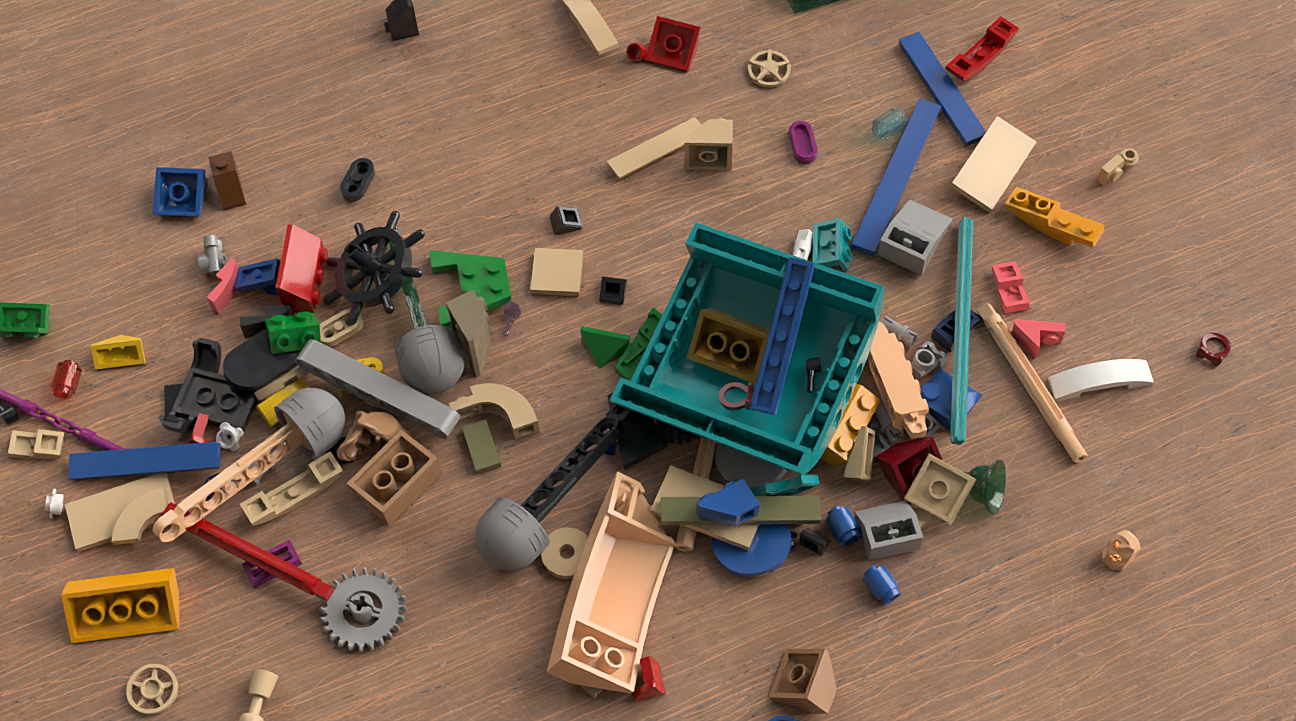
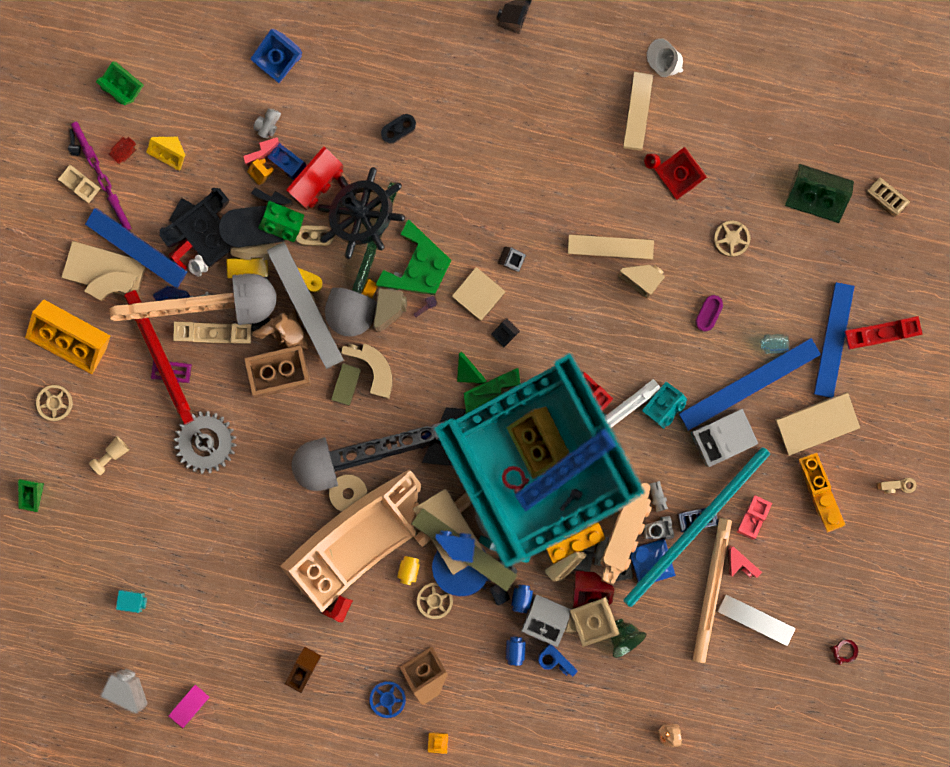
camera: 30 degrees right, 25 degrees up
(54, 503) = (66, 236): white plate -> none
(227, 180) = (313, 68): reddish brown slope -> none
(234, 305) = (259, 172): none -> light orange tile
(696, 583) = (408, 570): none -> yellow brick
(750, 598) = (434, 601): none -> tan wheel
(947, 559) = (566, 667): none -> blue plate

